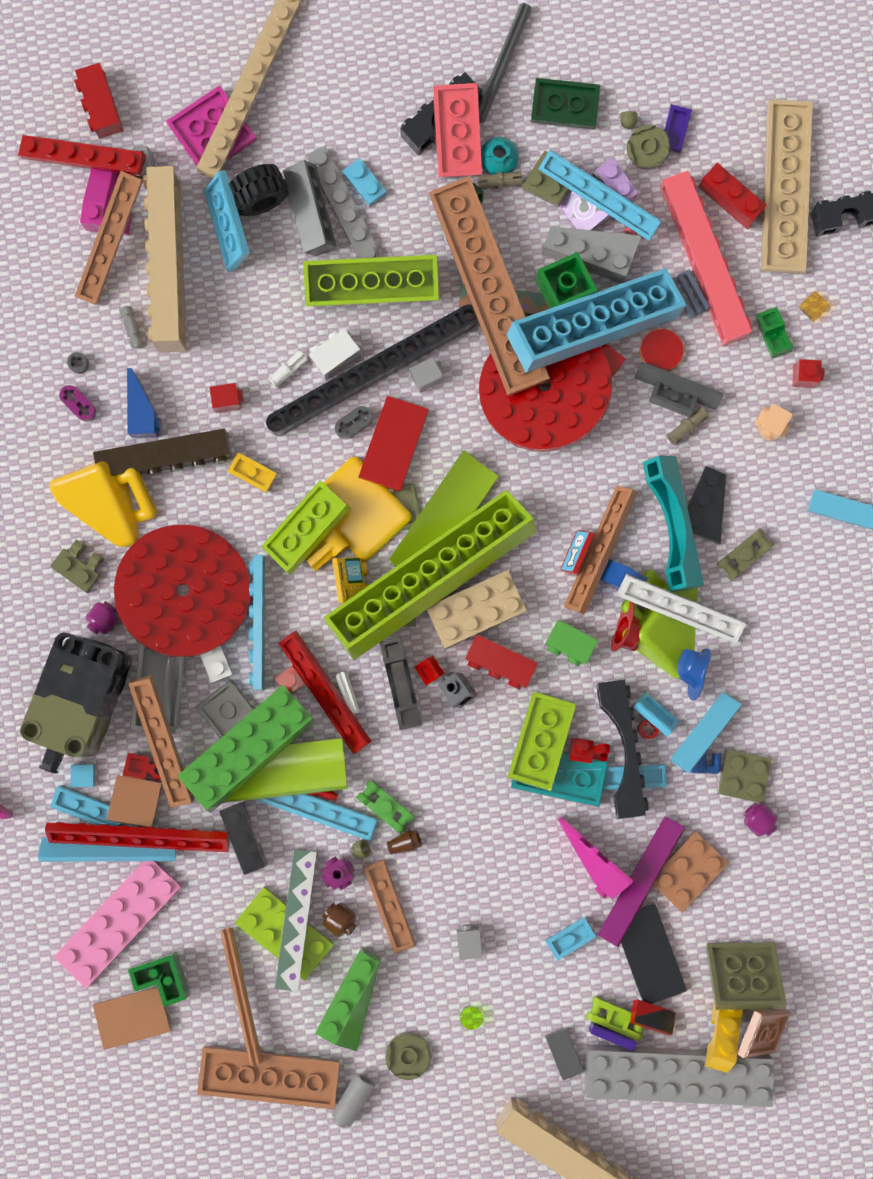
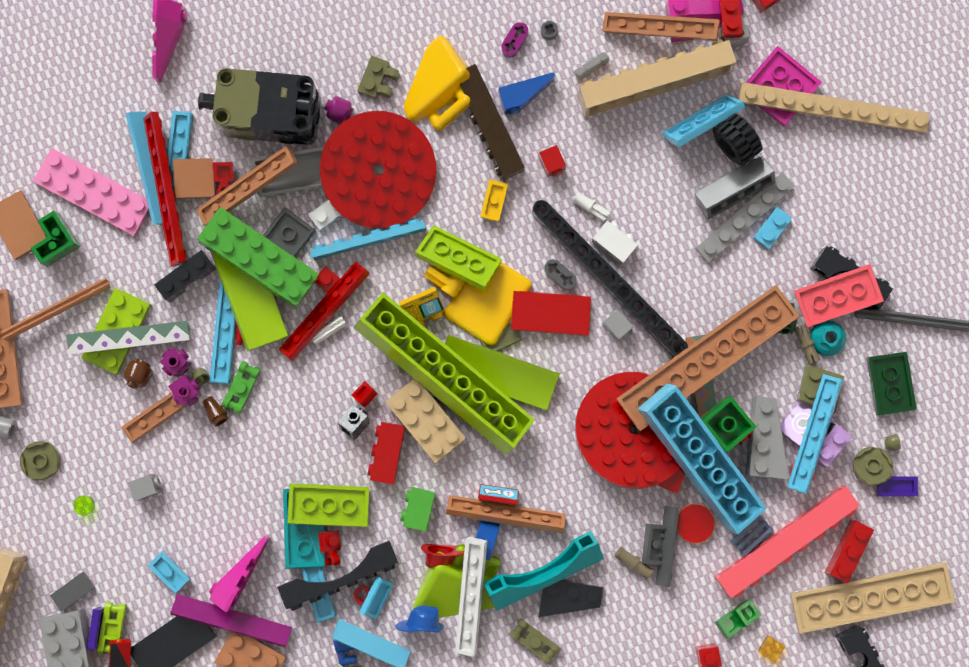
camera: 75 degrees right, 0 degrees up
(83, 775) = (205, 130): medium azure tile -> none
(348, 1009) = (64, 400): bright green wedge -> none
(369, 876) = (180, 386): none -> magenta brick
(371, 280) = (685, 256): lime brick -> none
(400, 683) = (347, 373): black arch -> none
(773, 422) = (657, 637): light nougat brick -> none

